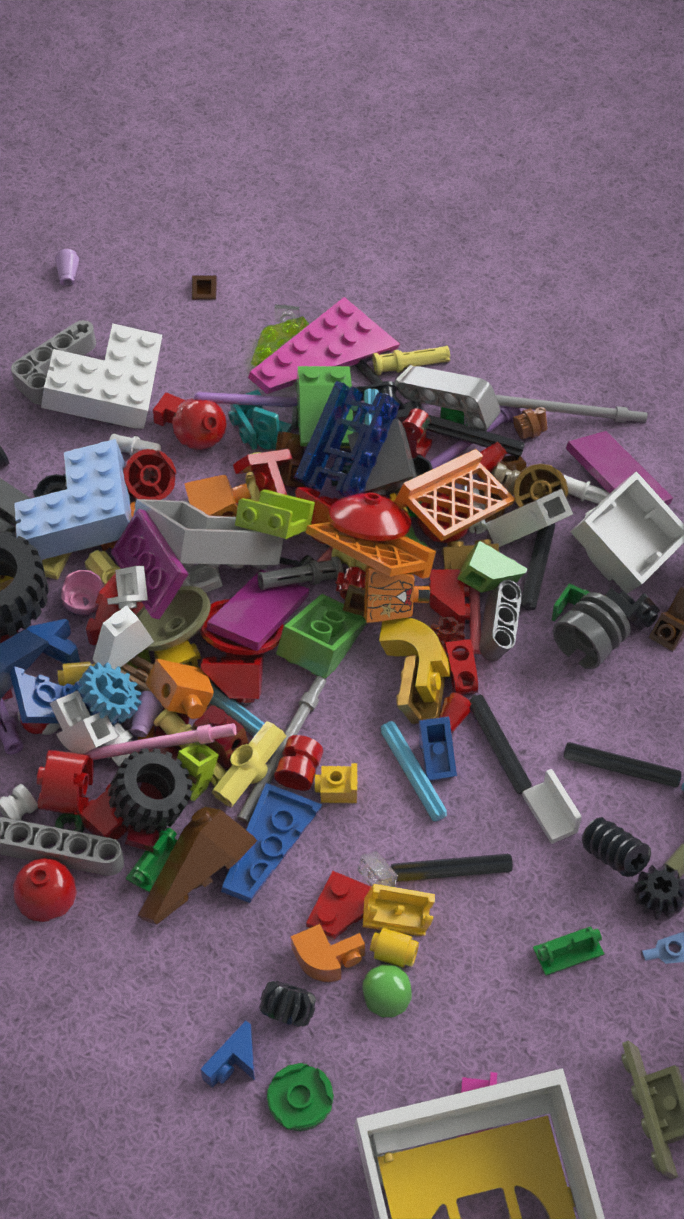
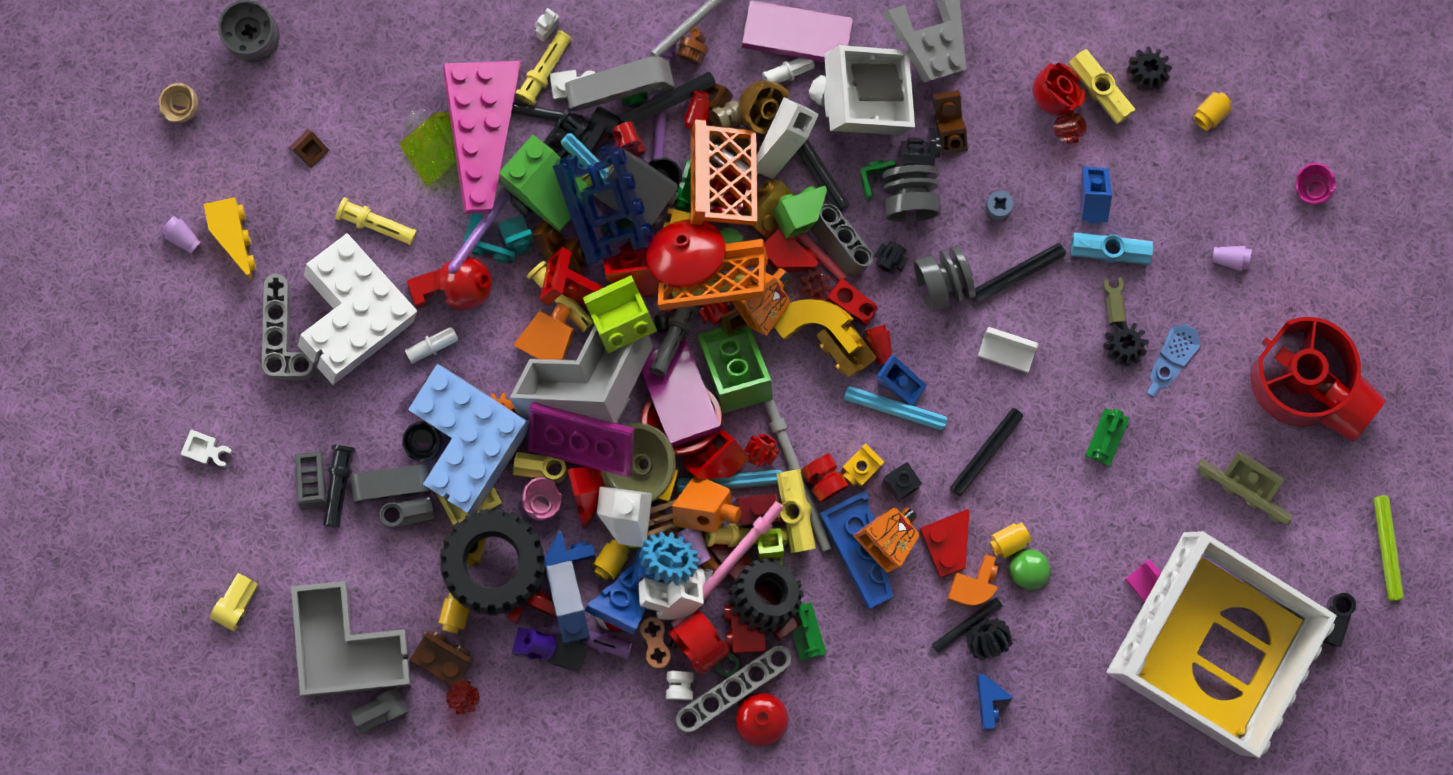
camera: 55 degrees left, 25 degrees up
(28, 762) = (655, 643): none -> nougat axle
(97, 284) = (226, 226): none -> yellow slope
(130, 587) = (593, 472): white bracket -> none
(149, 475) = (481, 363): red cylinder -> none
(157, 204) = (178, 95): none -> tan hair
(188, 346) = (365, 218): none -> light yellow pin
(200, 851) = (837, 603): reddish brown wedge -> none
(245, 196) = (234, 28): none -> dark grey wheel
(262, 978) = (965, 626): none -> black bar
(274, 702) = (761, 450): none -> red gear
(298, 847) = (889, 537): none -> orange torso
(303, 1108) = (1045, 691): green tile -> none
(355, 821) = (902, 481): none -> black brick
(376, 870) = (950, 502): clear piece -> none
(398, 910) = (989, 516): yellow hinge -> none
(441, 333) = (546, 24): none -> white plate
(500, 744) = (929, 334): black axle -> none
(528, 663) = (891, 257): none -> black gear
(554, 707) = (949, 277): none -> dark grey wheel
(616, 847) = (1076, 344): black piece -> none
(643, 530) = (877, 82): none -> clear smoke piece
(651, 706) = (995, 209): none -> sand blue wheel

